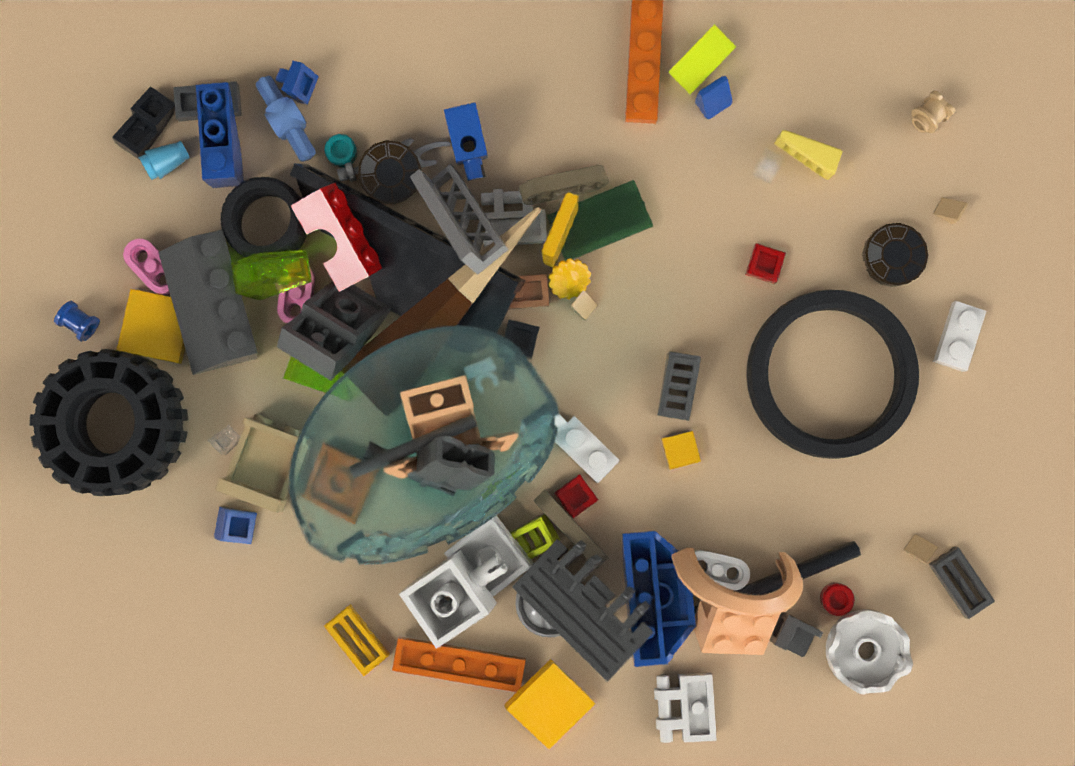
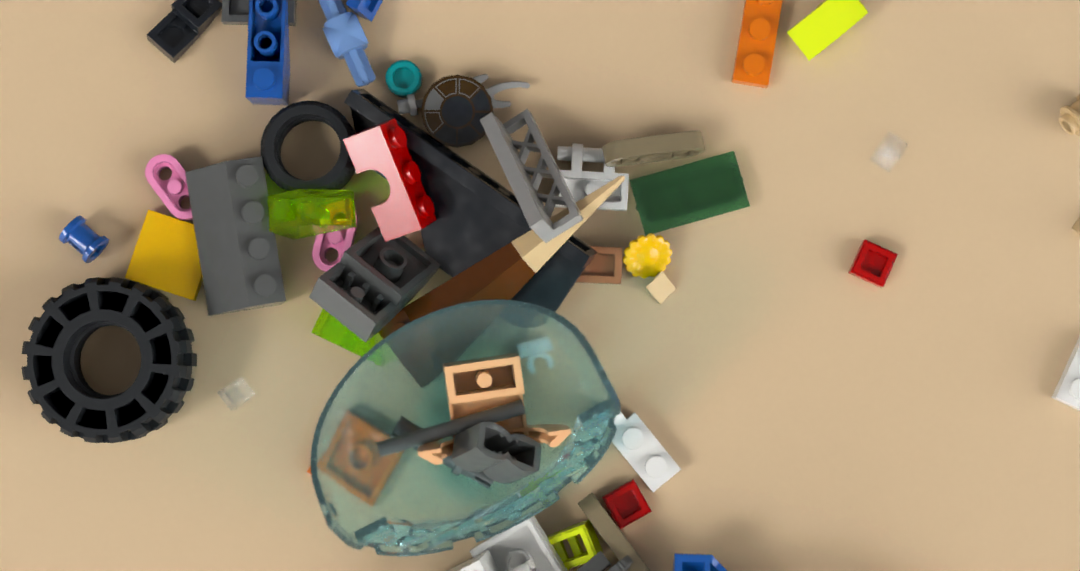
camera: 10 degrees right, 0 degrees up
(163, 159) = (202, 66): medium azure cone -> none
(235, 525) = (236, 492): blue slope -> none
(261, 464) = (277, 426): tan panel -> none
(465, 126) = (550, 67): blue torso -> none
(522, 336) = (585, 316): black plate -> none
(560, 229) = (643, 201): yellow tile -> none
(680, 358) = (775, 381): dark grey slope -> none
(680, 450) = (751, 465): yellow tile -> none
(714, 97) = (836, 68): blue slope -> none
(815, 155) = (942, 146): light yellow slope -> none
(895, 254) = (1022, 270): tile -> none
(904, 362) = (1017, 399): black tyre -> none

